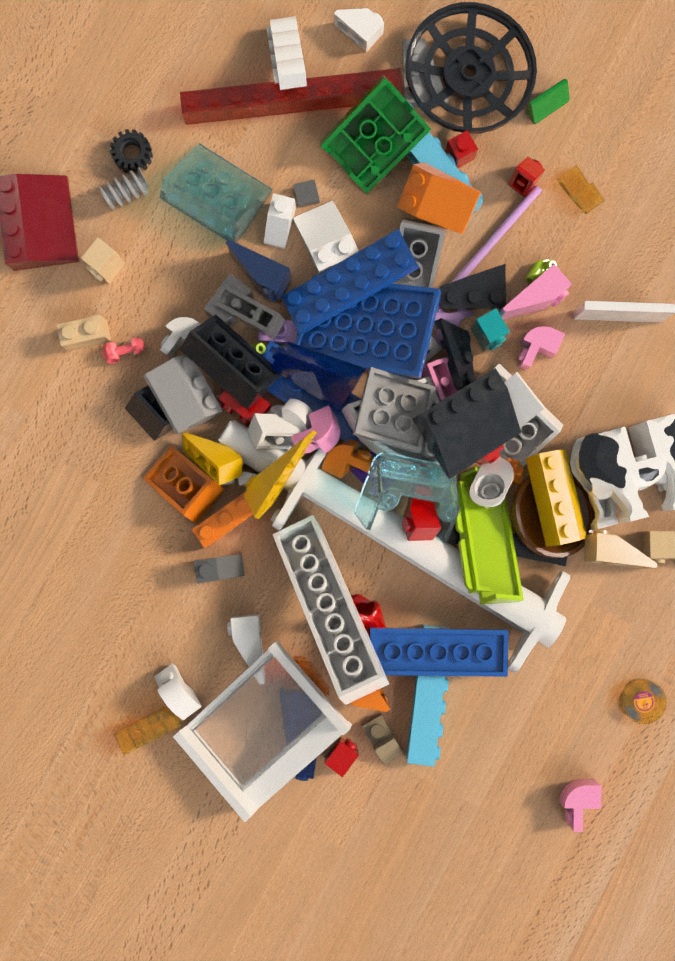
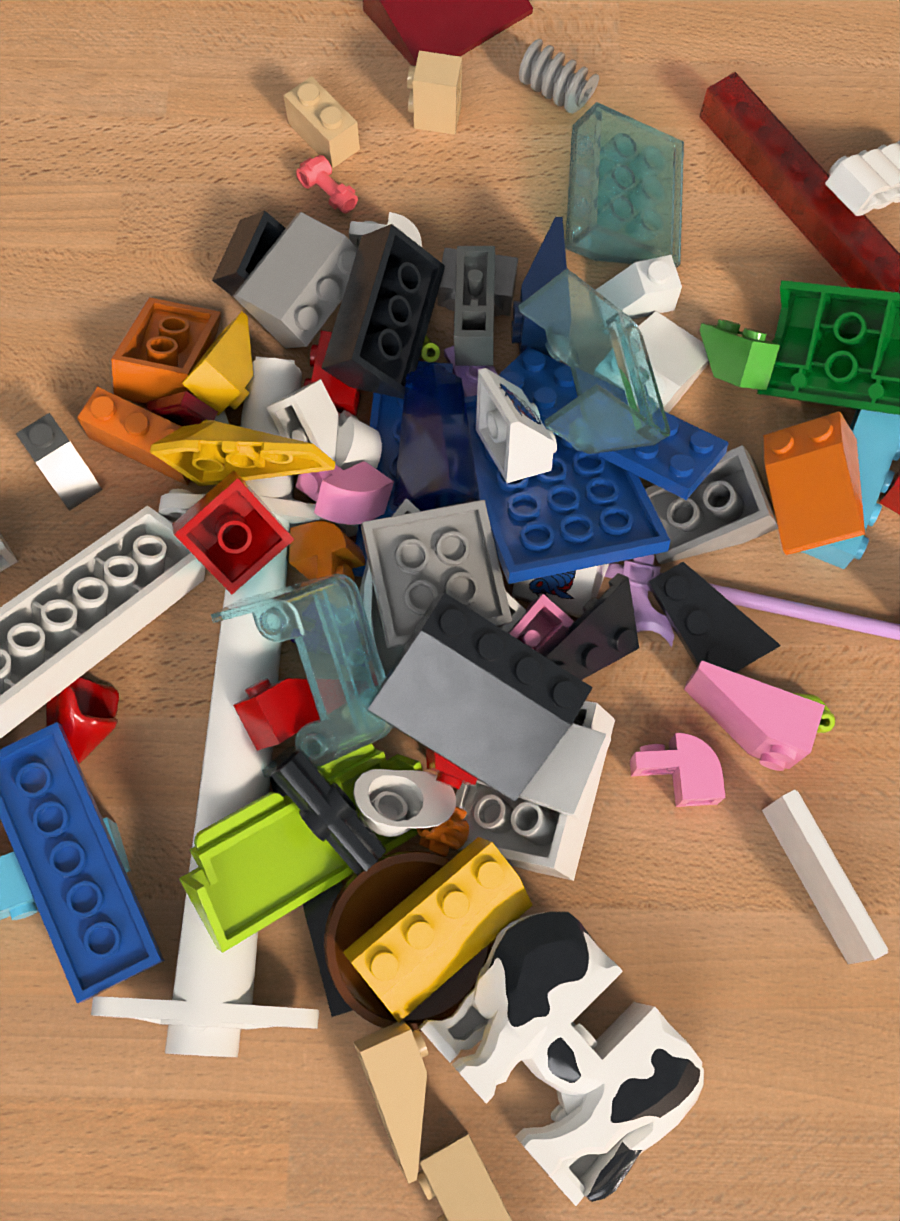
camera: 60 degrees right, 15 degrees down
(131, 139) = (621, 49): black tyre -> none
(228, 494) = (182, 409): none -> dark red tile
(306, 193) = (702, 308): dark grey tile -> none
(318, 499) = (232, 532): none -> red slope
(331, 266) = (609, 366): none -> clear light blue windscreen
(337, 332) = (512, 429): none -> white slope
(344, 192) = (739, 356): none -> bright green slope
(482, 521) = (328, 811): none -> black piece
(490, 330) = (657, 671): teal brick -> none

